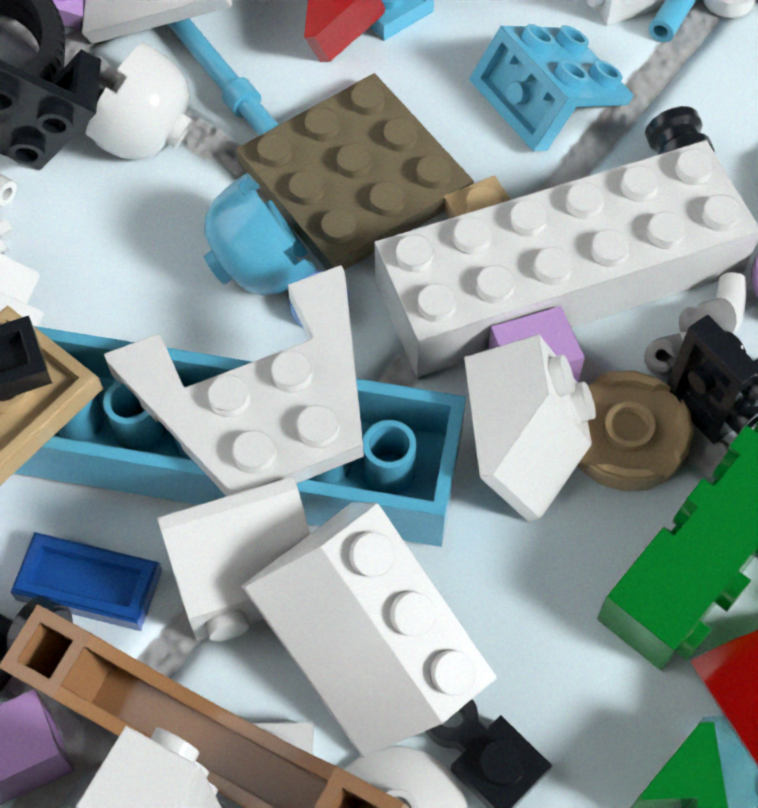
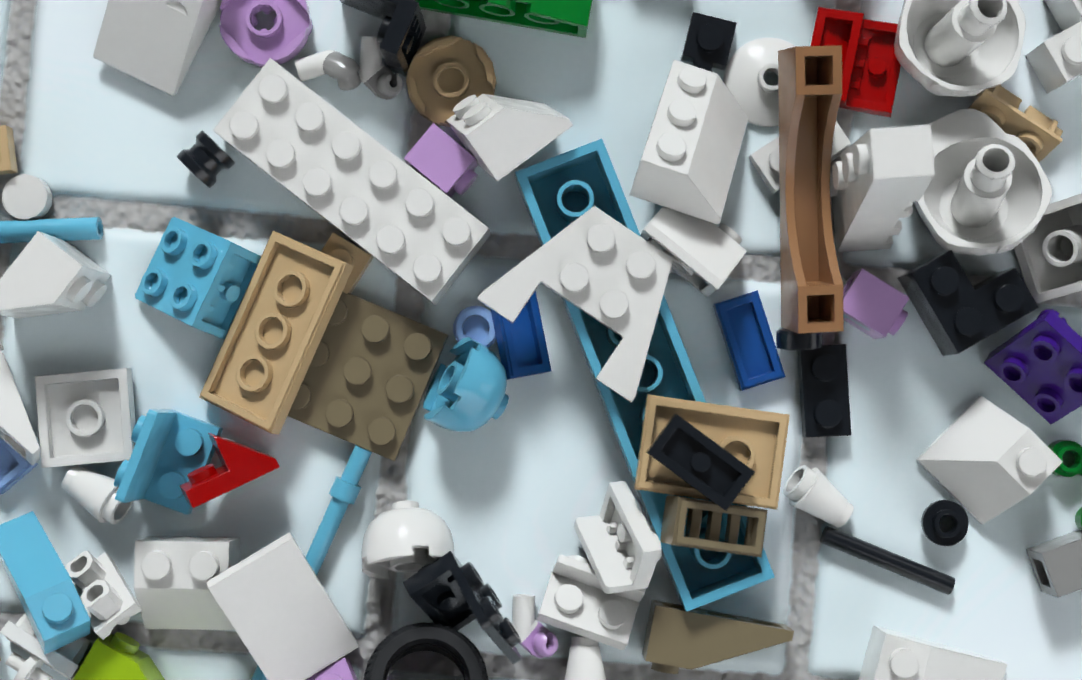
camera: 125 degrees left, 25 degrees up
(260, 325) = (522, 343): none -> blue tile
(449, 113) = (276, 332): none -> tan tile

